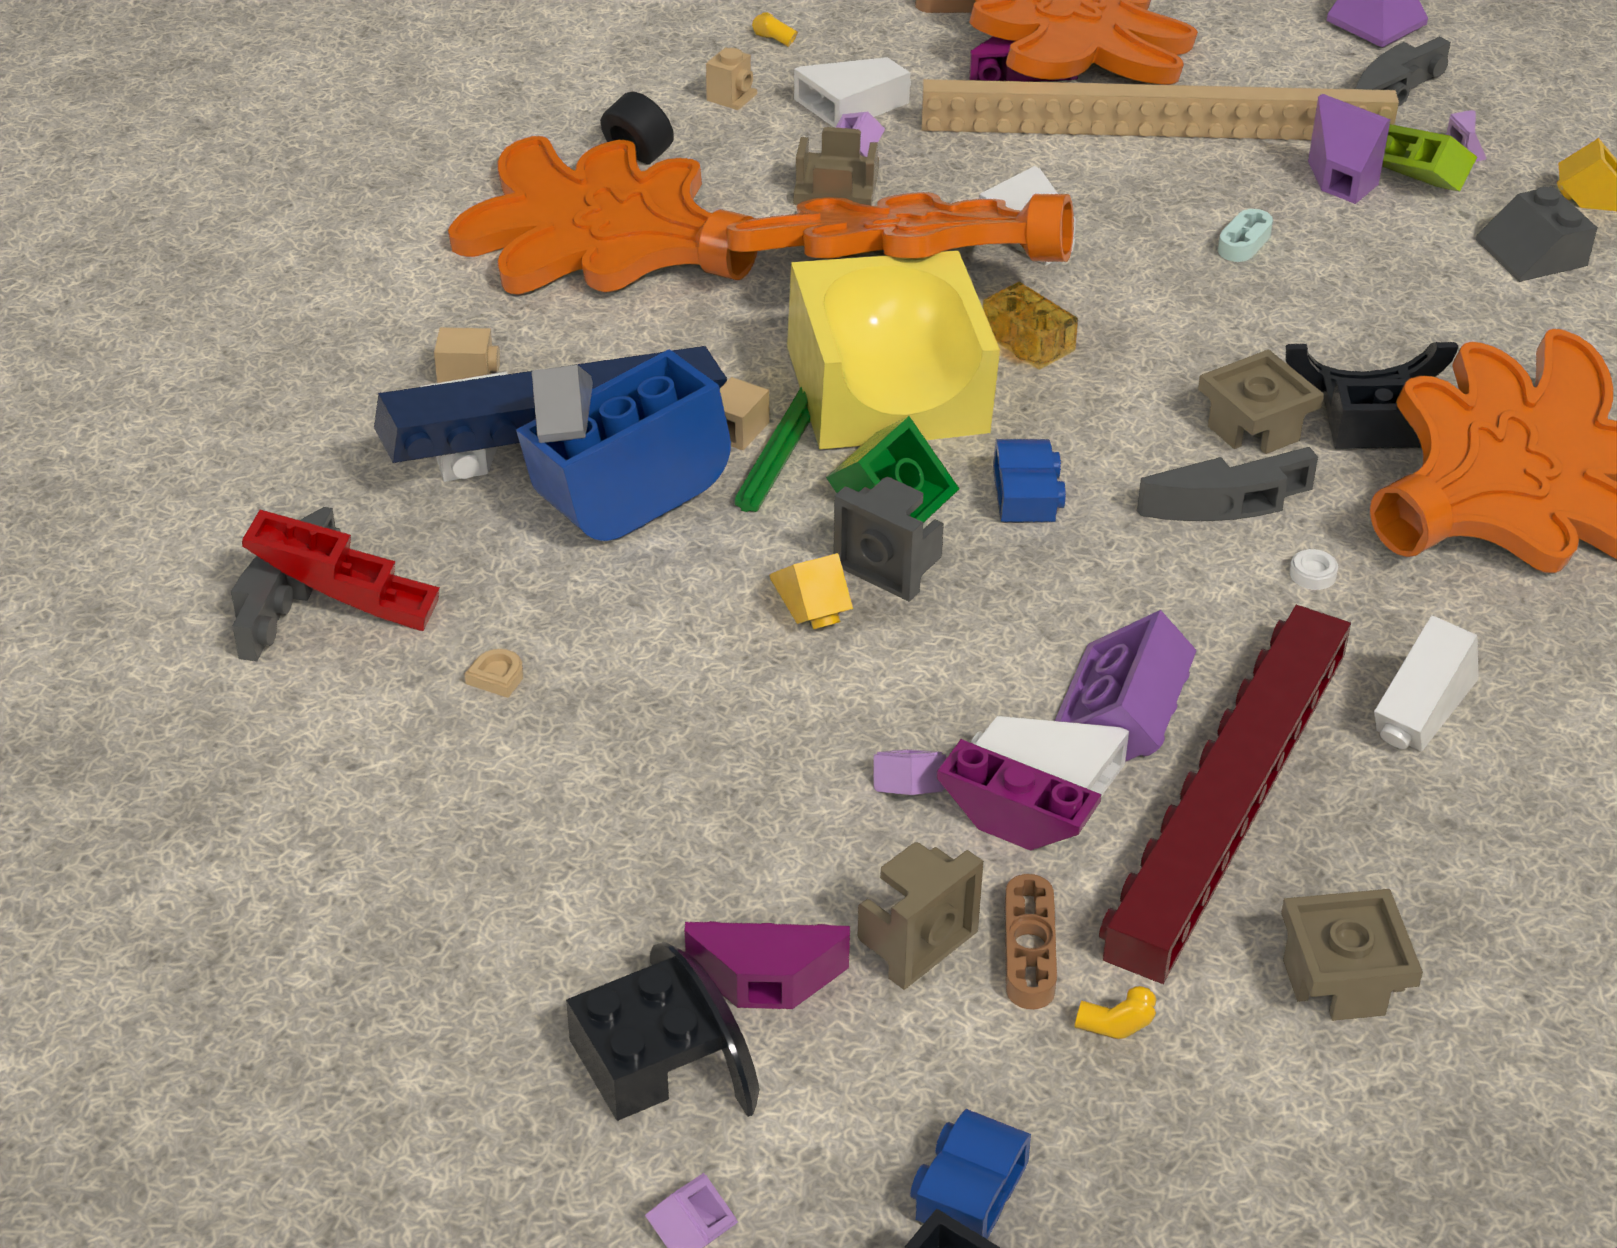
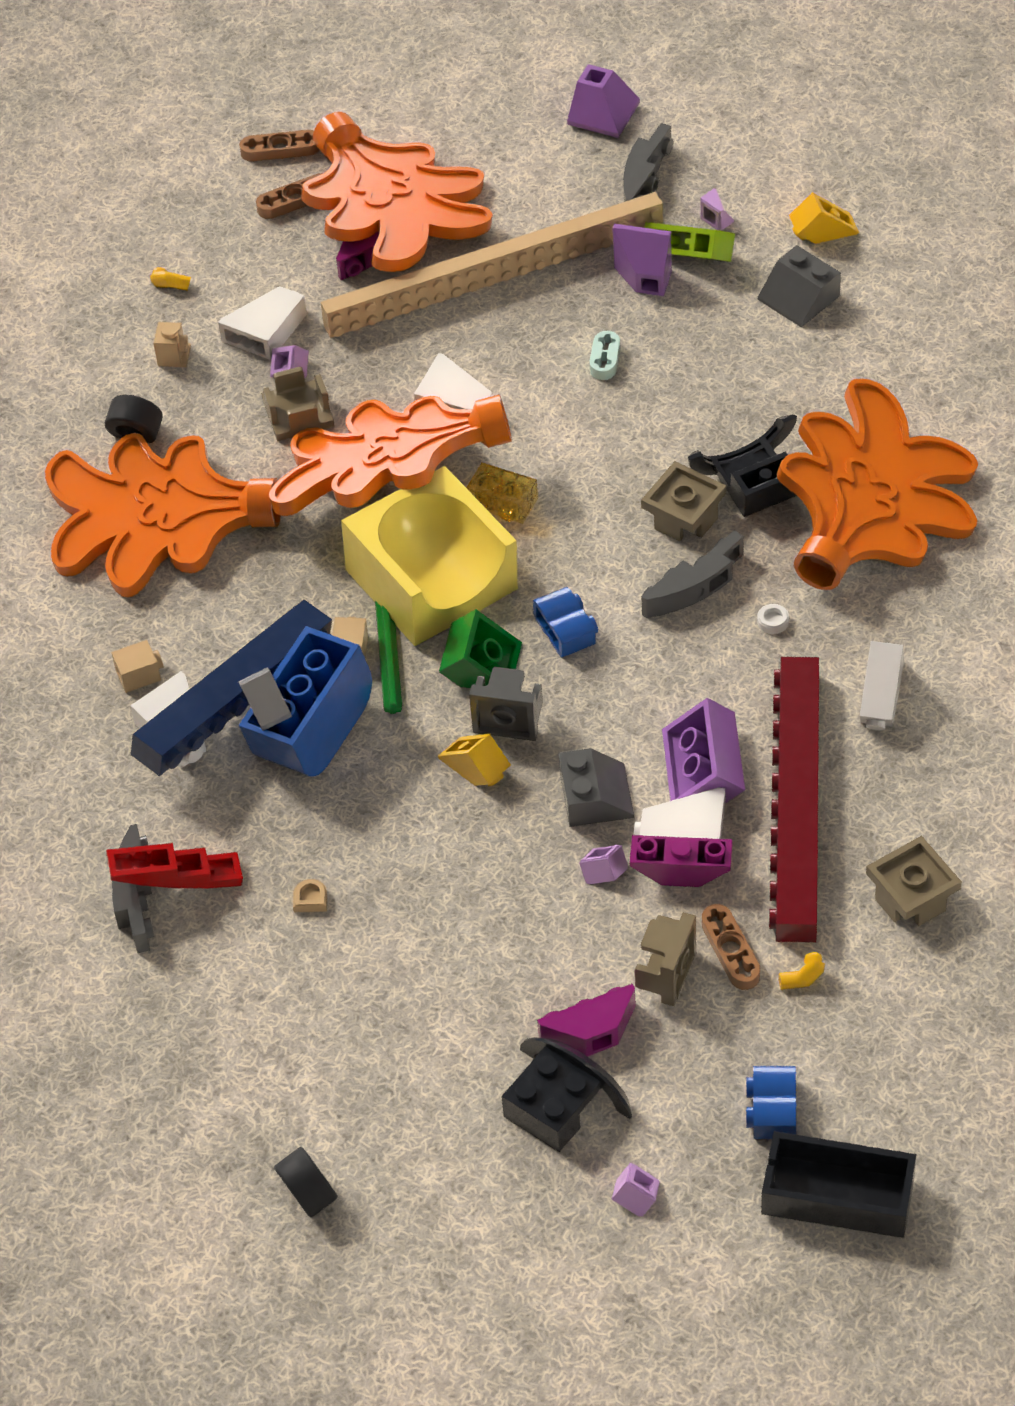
camera: 20 degrees left, 10 degrees up
(227, 1008) = (305, 1182): none -> black tyre
(949, 674) = (594, 787): none -> dark grey slope

